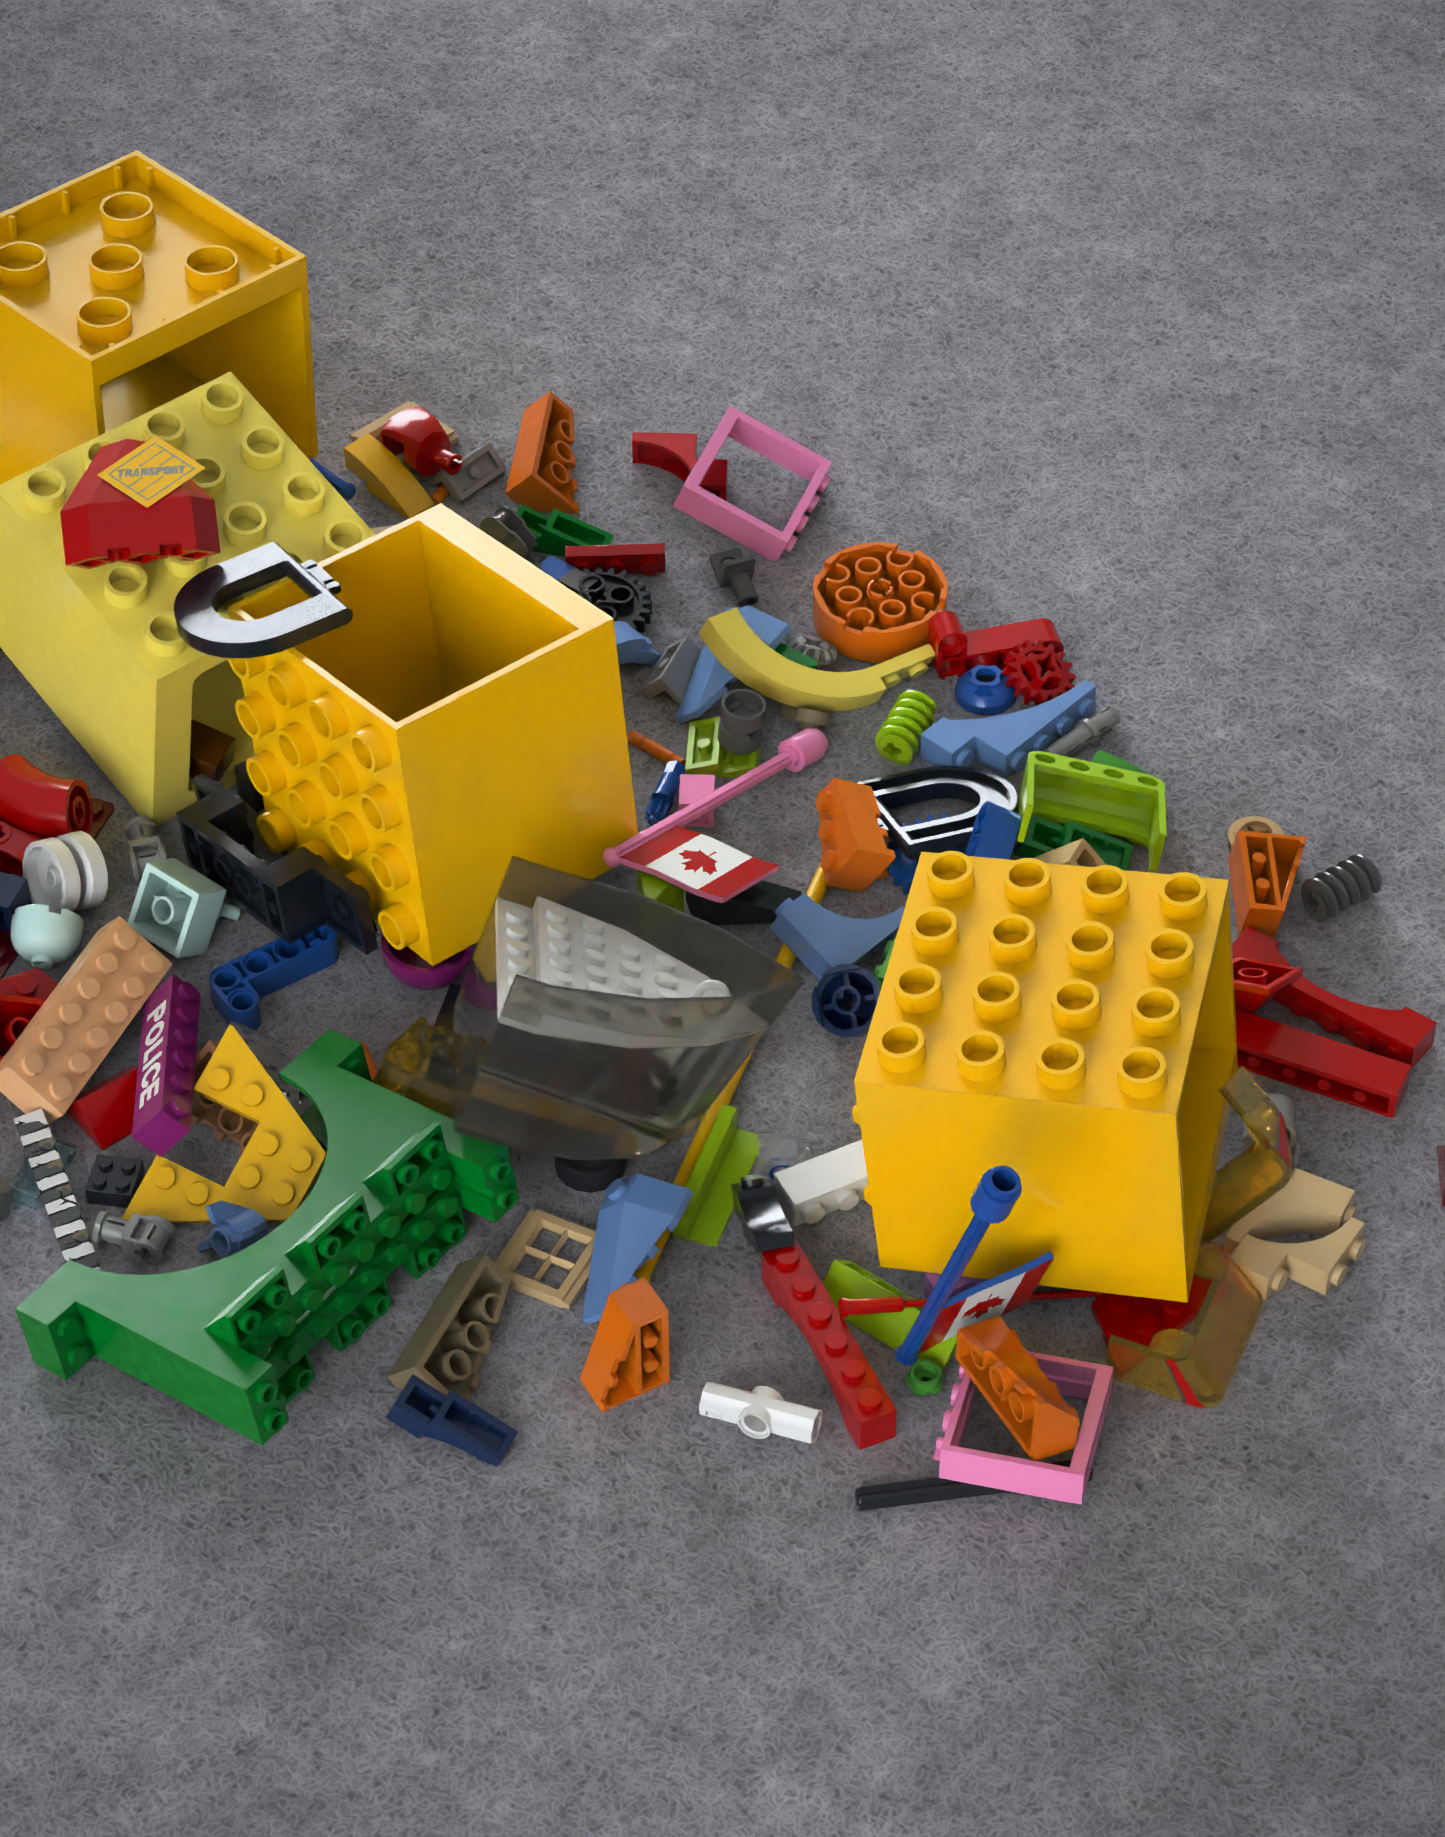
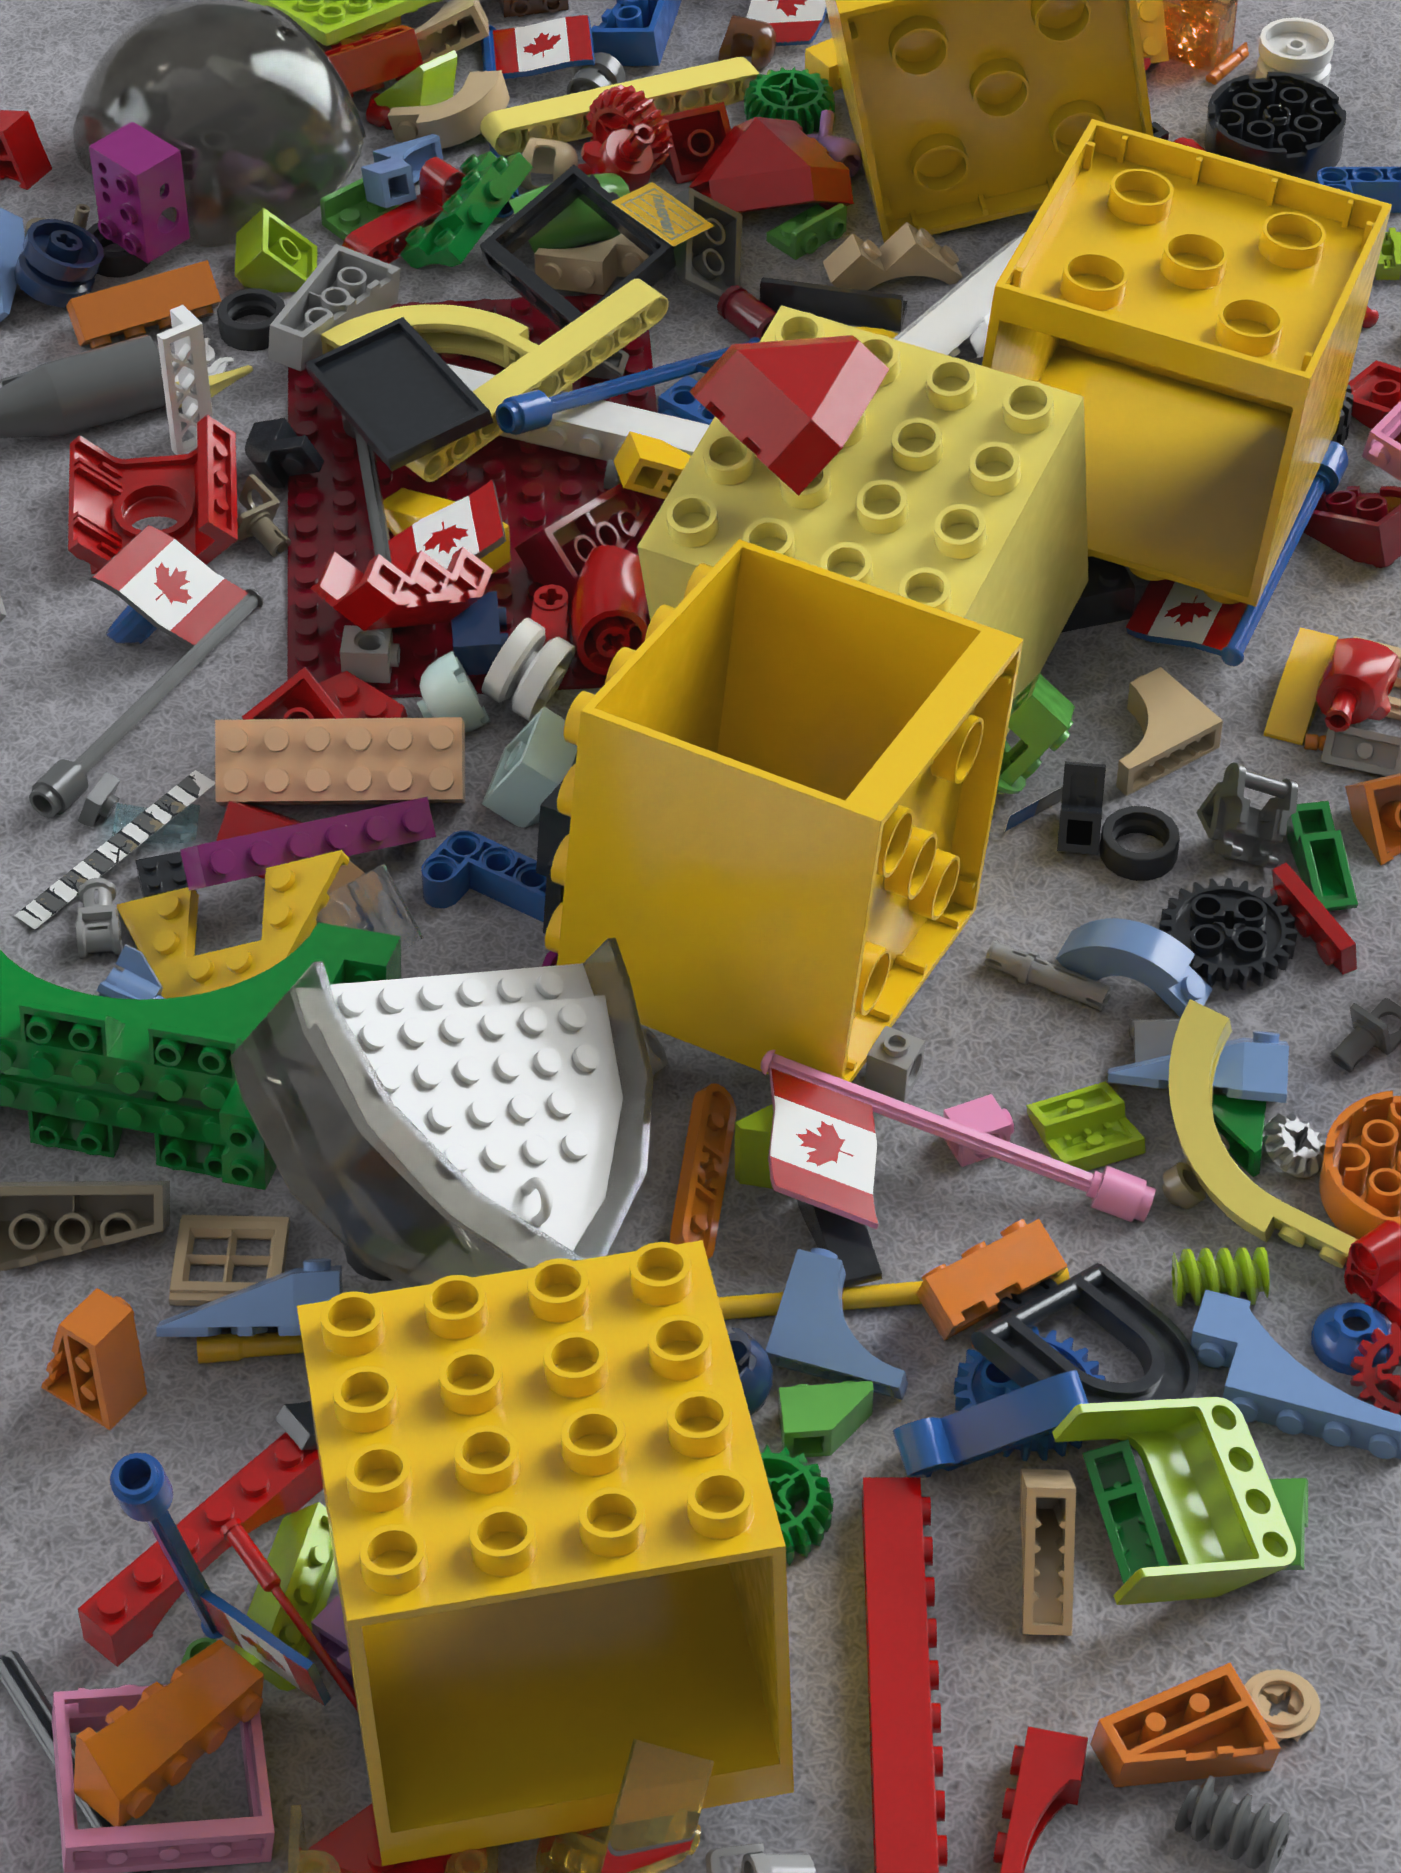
camera: 65 degrees right, 0 degrees up
(151, 471) = (822, 376): yellow sticker -> none
(226, 638) = (692, 575): piece -> none
(565, 573) = (1254, 881): sticker -> none
(653, 748) = (1045, 1069): orange wheel -> none
(663, 796) = (1010, 1097): blue piece -> none
(741, 721) = (1103, 1113): dark grey wheel -> none
(761, 1412) = (82, 1522): white piece -> none
(1086, 732) = (1316, 1453): light grey pin -> none
(1260, 982) = (972, 1761): red slope -> none

